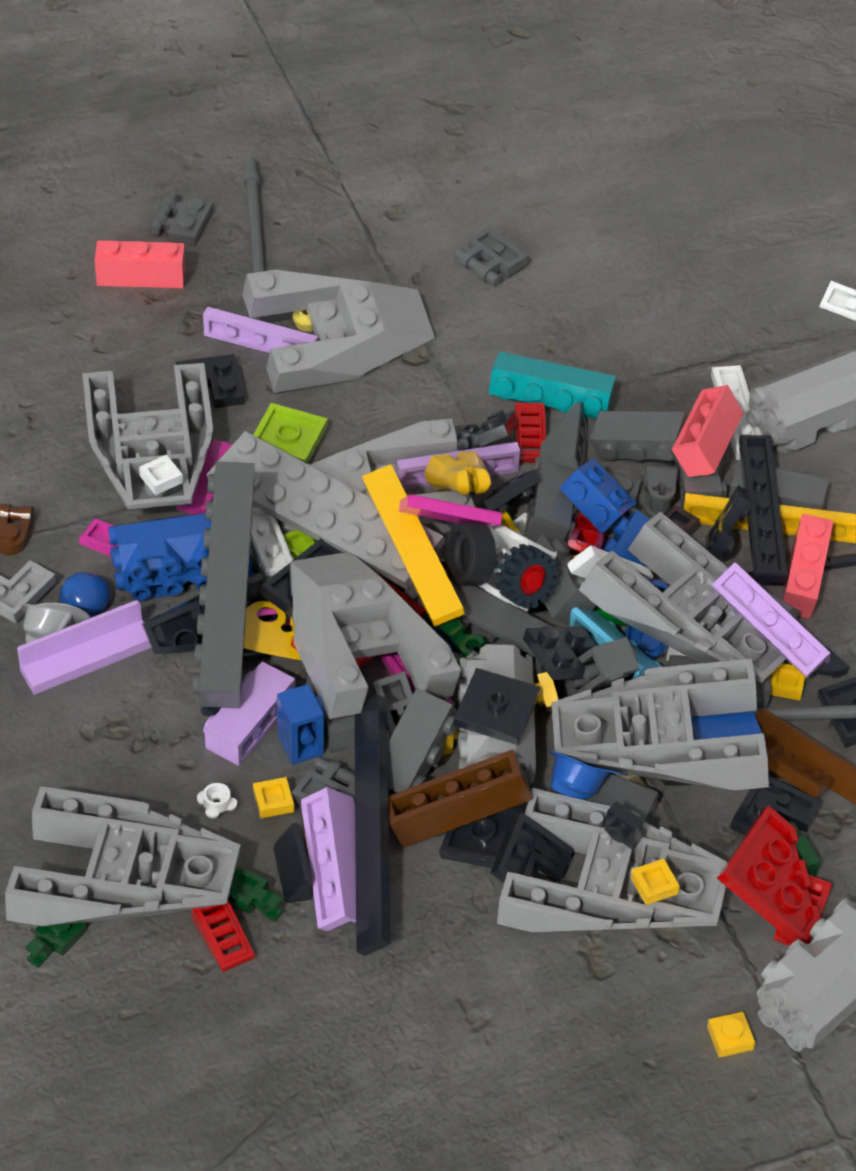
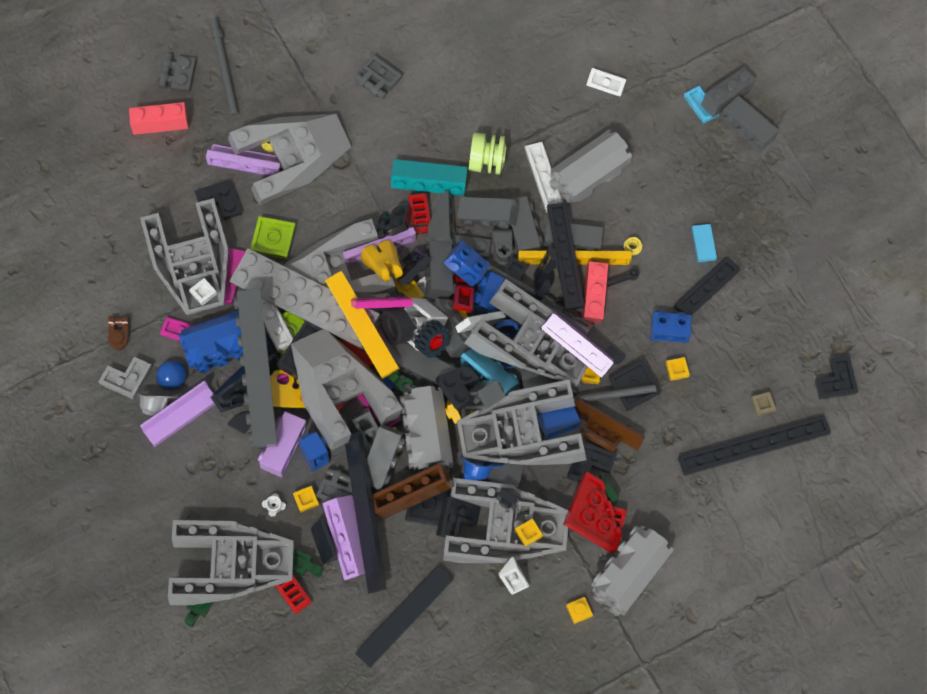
camera: 10 degrees left, 20 degrees up
(182, 676) = (239, 423): none -> black tile
(413, 1001) = (404, 617): none -> black tile
(497, 706) = (426, 432): black plate -> none
(618, 956) = (513, 576): none -> white slope
(650, 362) = (487, 153): none -> yellowish green wheel
(707, 431) = (527, 208): coral brick -> none

